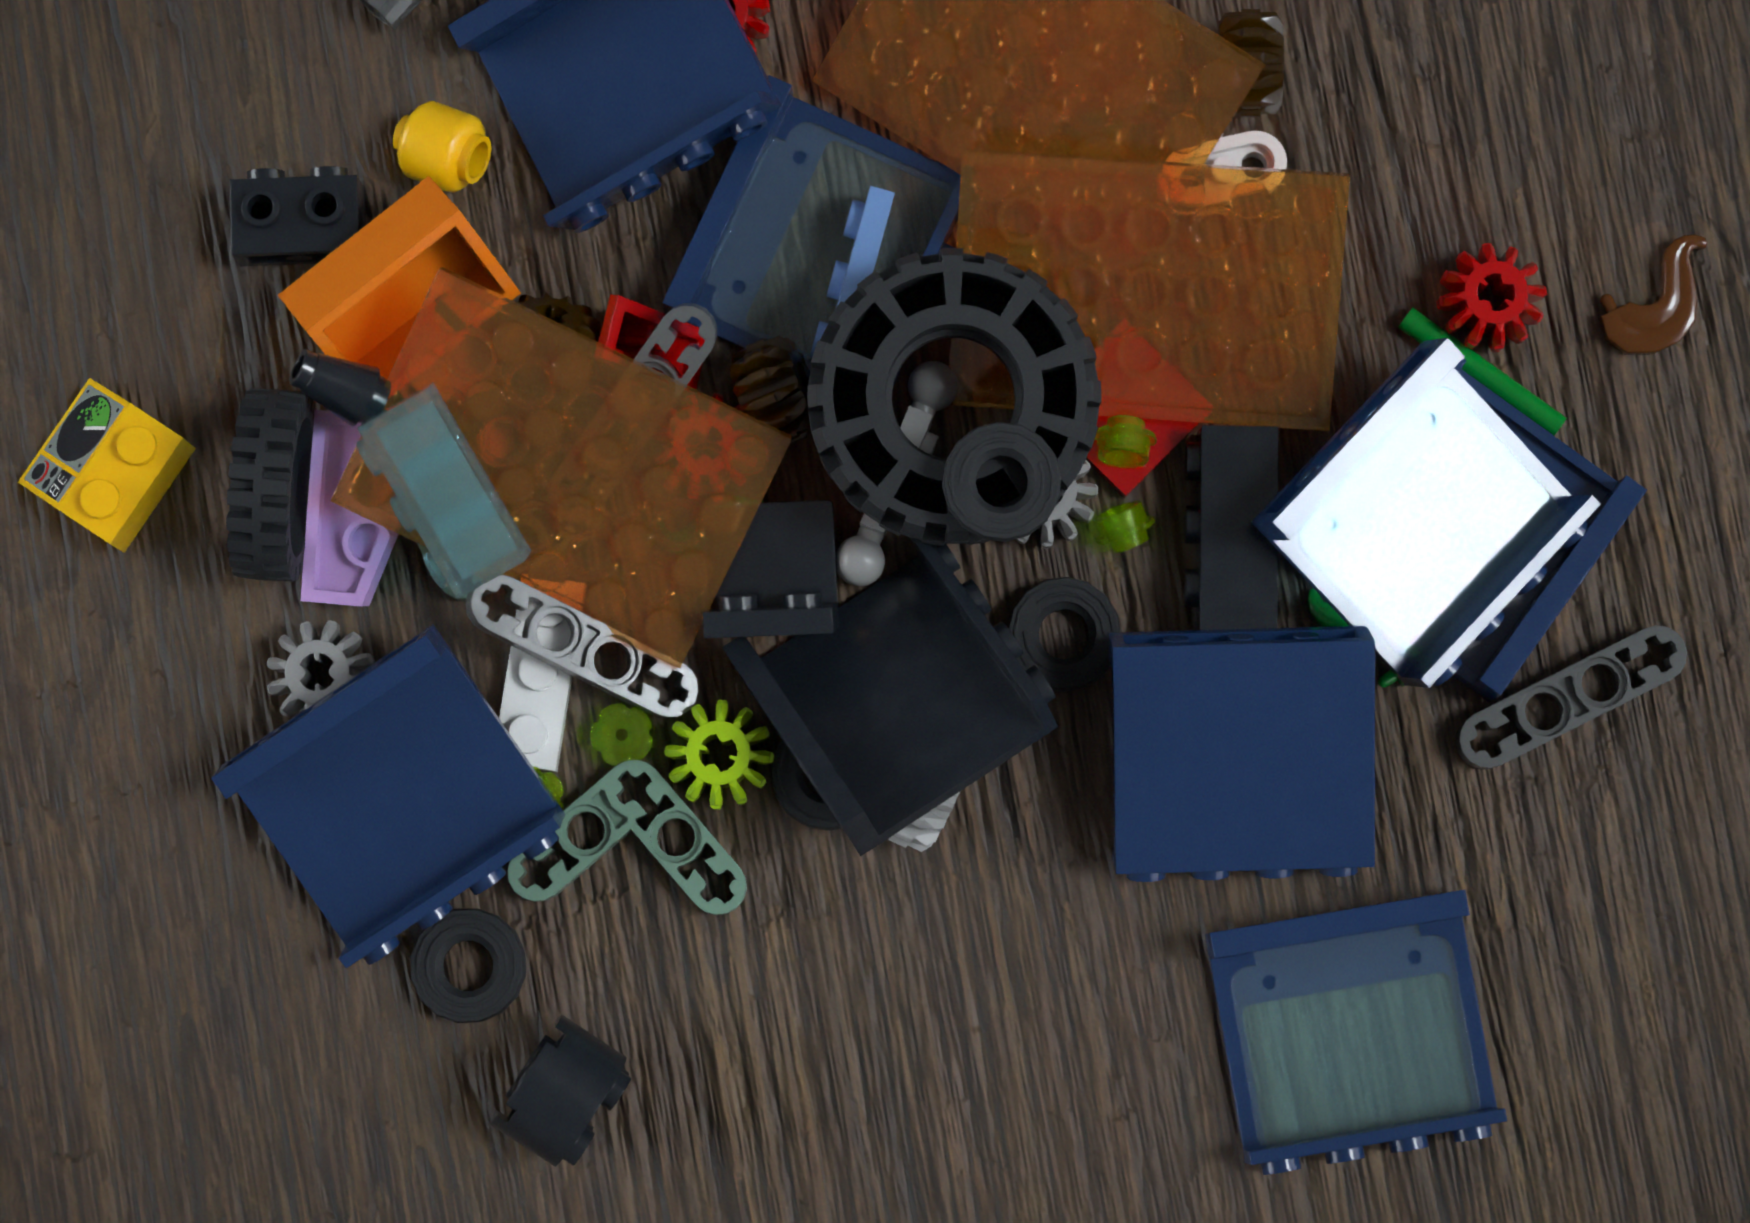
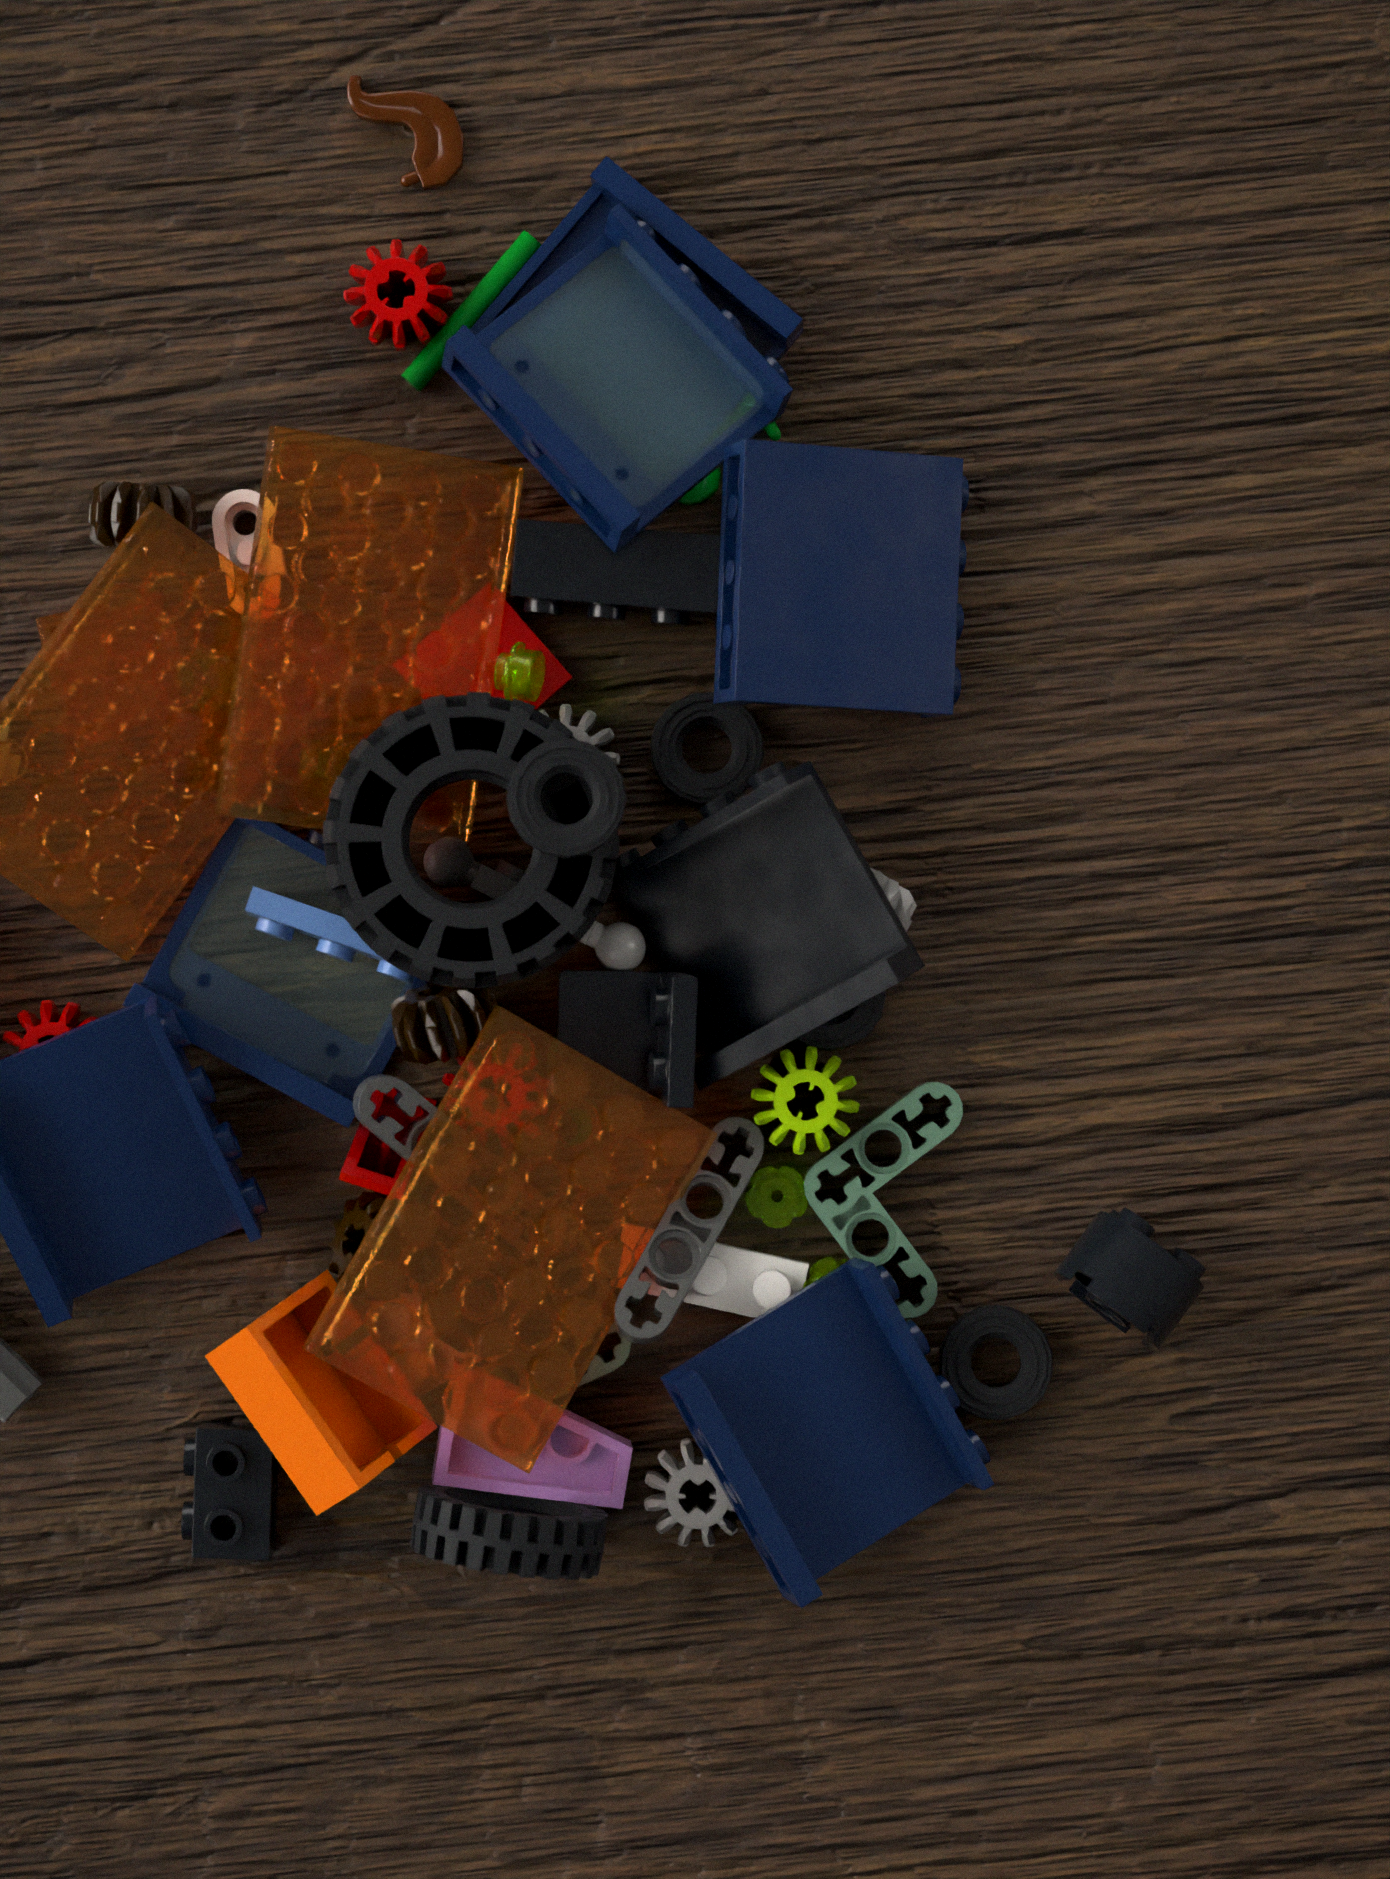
camera: 90 degrees left, 5 degrees up
(107, 465) = (471, 1697): yellow slope -> none
(340, 385) = (416, 1455): black cone -> none
(442, 145) = (170, 1340): yellow head -> none
(442, 491) = (532, 1360): clear light blue brick -> none
(1123, 526) = (602, 681): clear neon green plate -> none
(1353, 1031) = (1120, 492): clear light blue panel -> none
(1572, 701) = (811, 248): dark grey beam -> none

